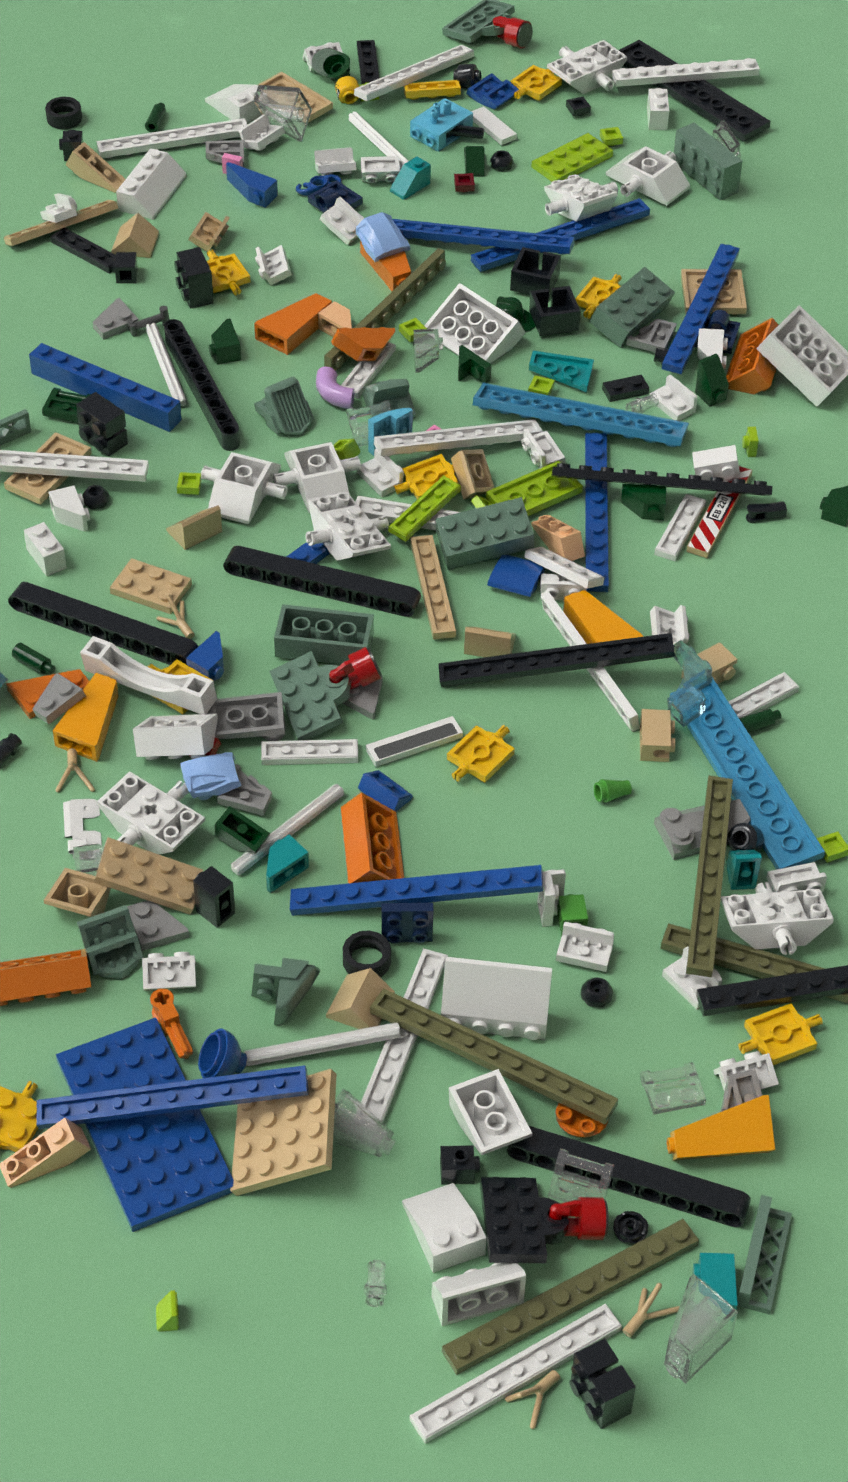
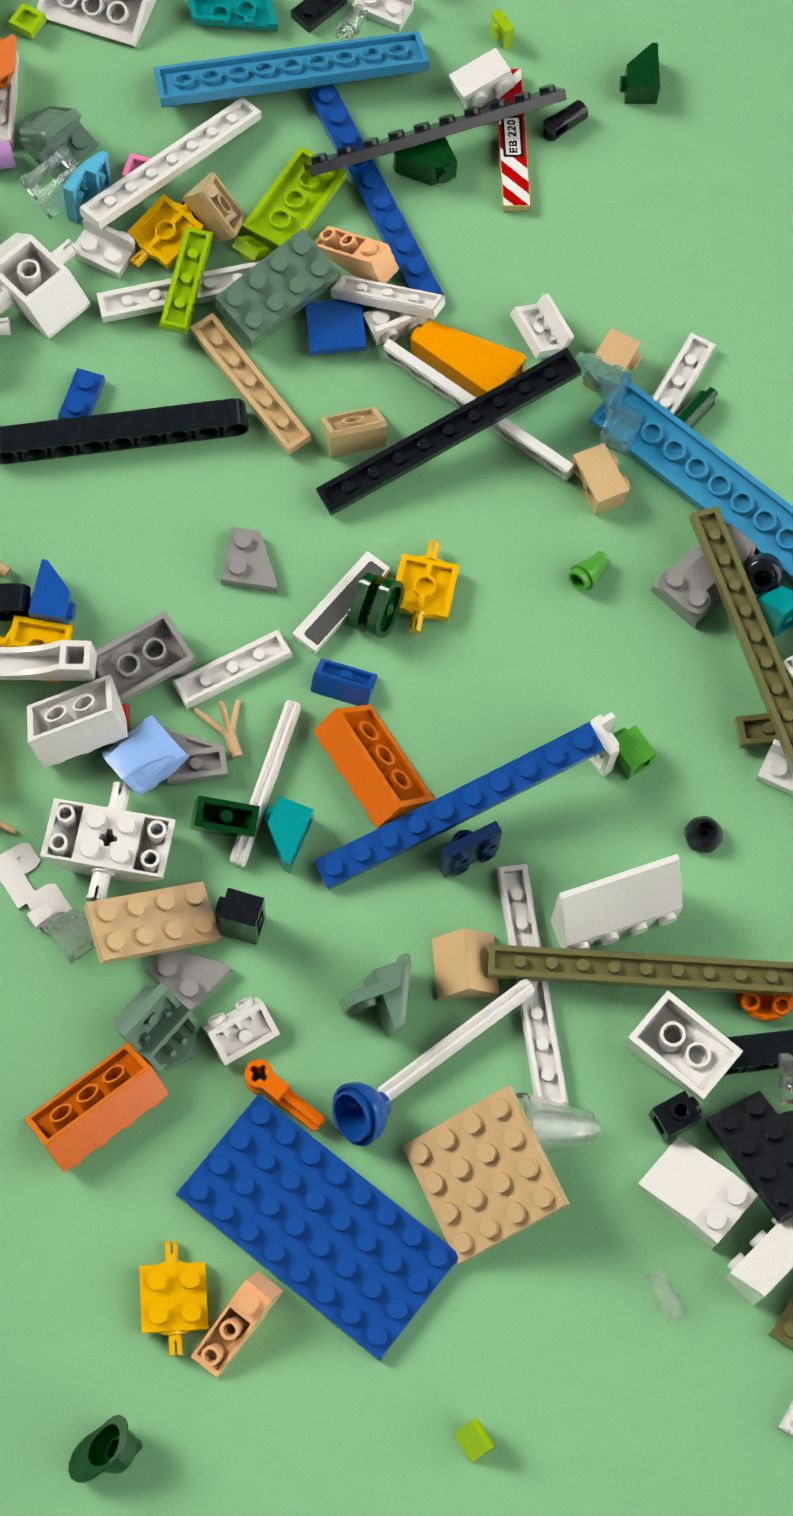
camera: 30 degrees left, 20 degrees up
(78, 893) = (85, 985): tan slope -> none
(174, 1097) = (346, 1197): blue plate -> none
(280, 786) = (229, 731): none -> tan plant
(315, 691) = (201, 587): sand green plate -> none
(325, 632) = (168, 508): sand green brick -> none
(345, 527) = (112, 349): white slope -> none
(346, 448) = (42, 228): lime slope -> none
(367, 939) = (448, 883): black tyre -> none
(426, 347) = (58, 42): clear slope -> none
(436, 746) = (376, 604): none -> dark green brick
(473, 365) = (125, 45): dark green slope -> none
(541, 385) = (223, 44): lime plate -> none
(541, 448) = (273, 137): white bracket -> none
(585, 946) = (666, 786): white bracket -> none
(680, 527) = (480, 181): white tile -> none

